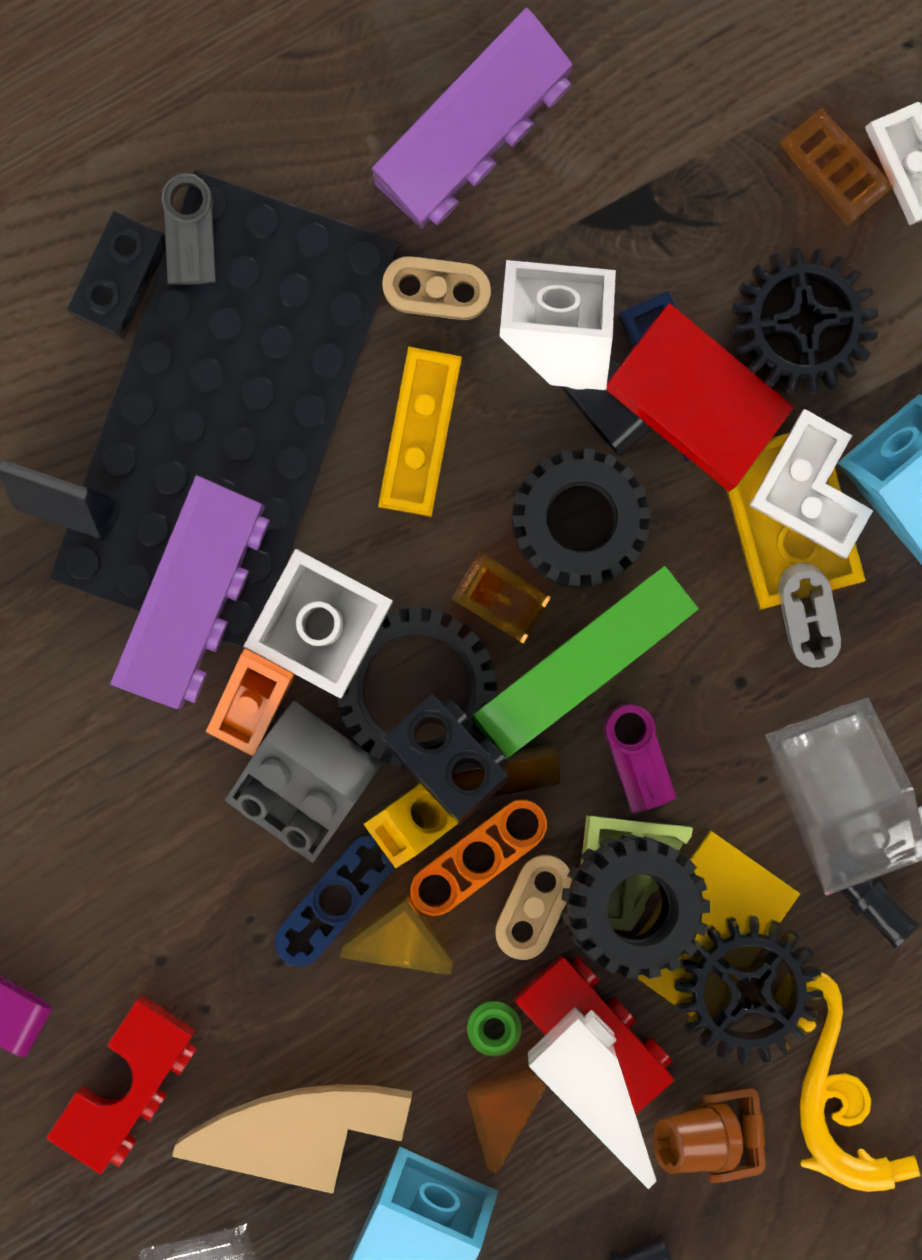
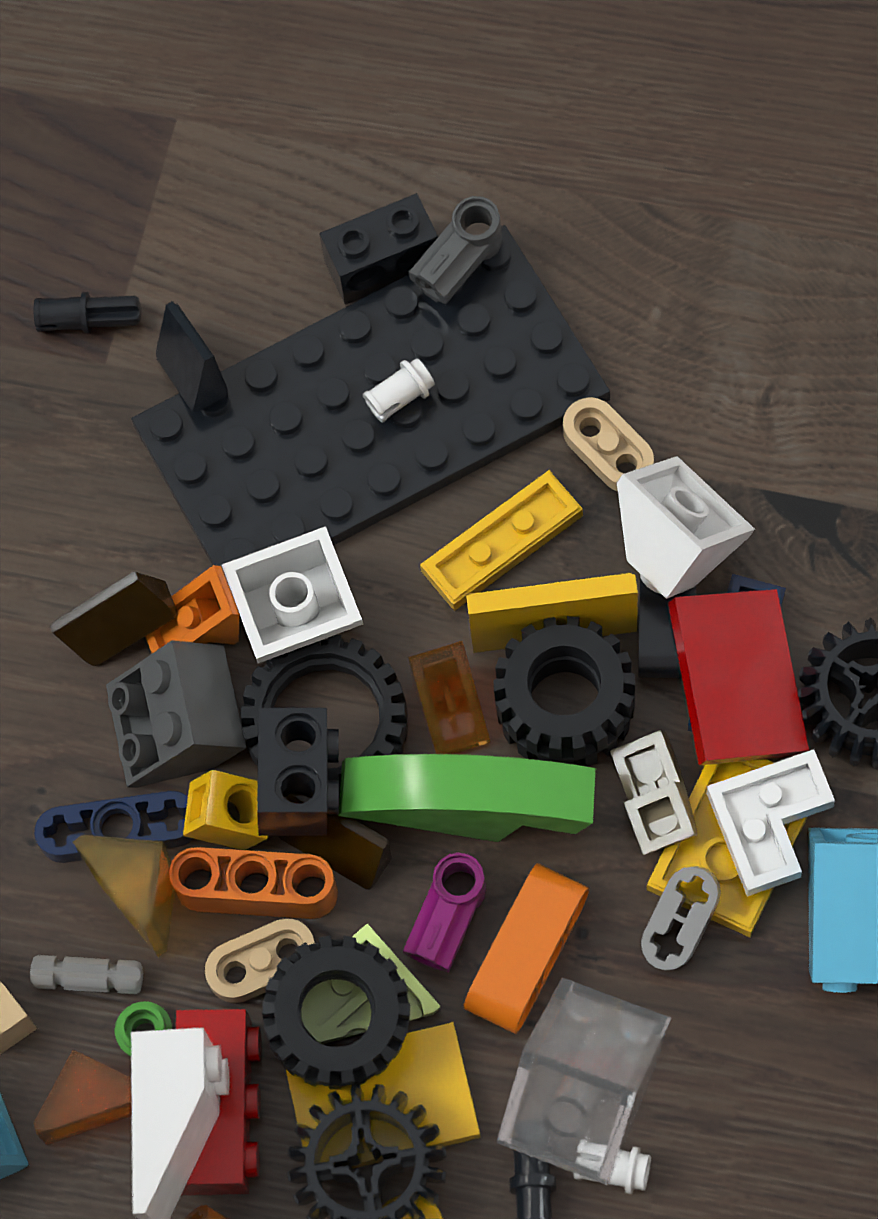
camera: 55 degrees right, 20 degrees down
(189, 594) = (216, 490): medium lavender slope -> none
(195, 749) = (116, 617): none -> dark brown slope
(244, 385) = (399, 389): none -> white pin
(415, 1025) = (86, 974): none -> light grey axle
(473, 120) = (742, 340): medium lavender slope -> none
(521, 464) = (504, 613): none -> yellow tile
(709, 535) = (655, 792): none -> slope
(717, 732) = (526, 948): none -> orange beam

